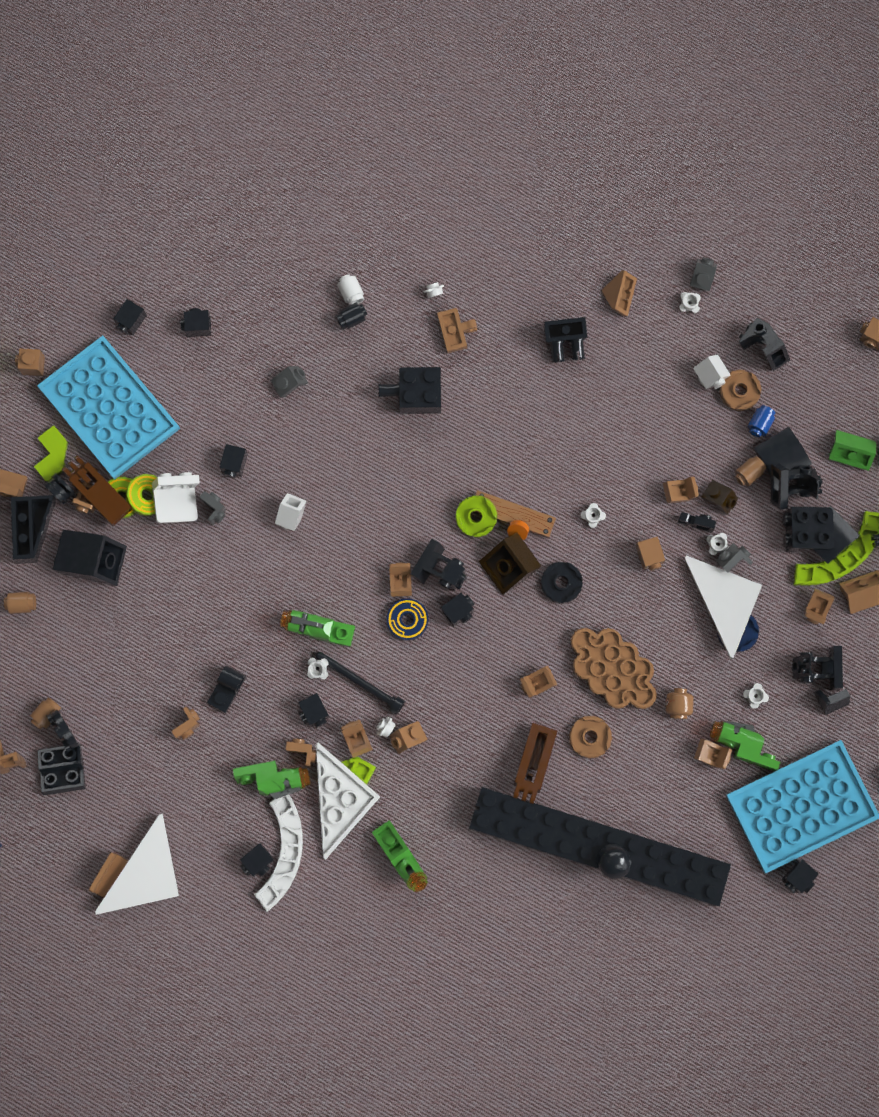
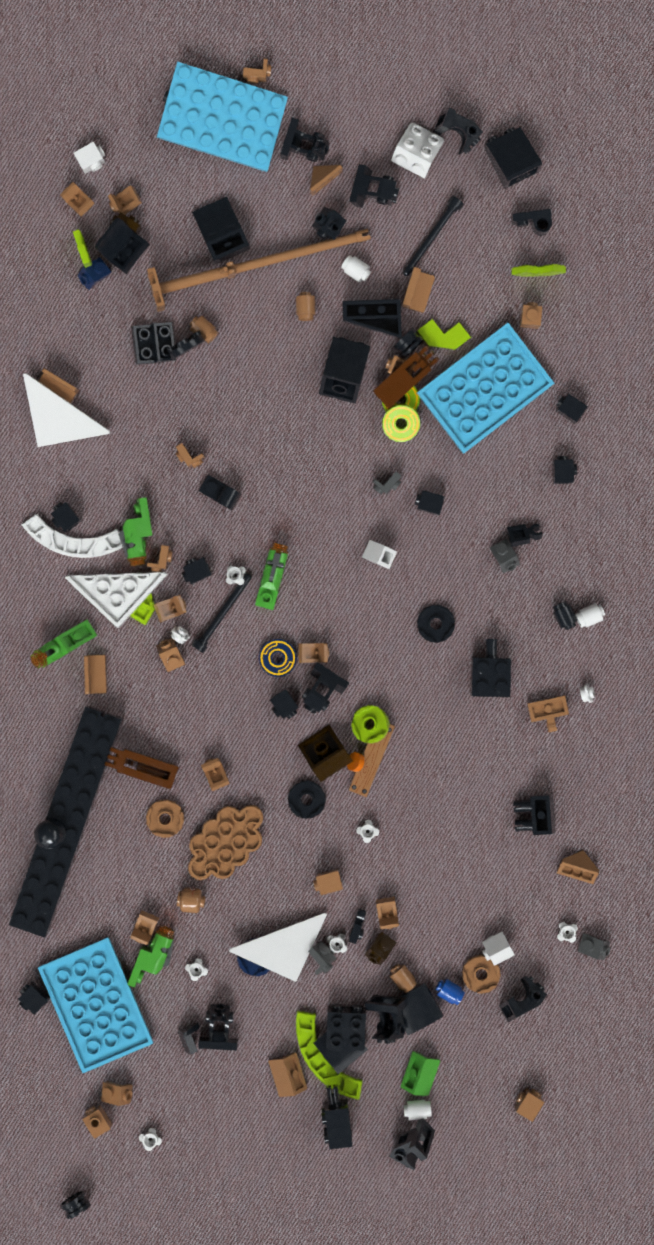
camera: 90 degrees right, 10 degrees up
(175, 497) = (395, 449): white bracket -> none
(266, 364) = (522, 535): none -> black plate
(364, 439) = (447, 623): none -> black tile
(432, 820) = (95, 674): none -> medium nougat panel
(818, 606) = (274, 1031): medium nougat bracket -> none

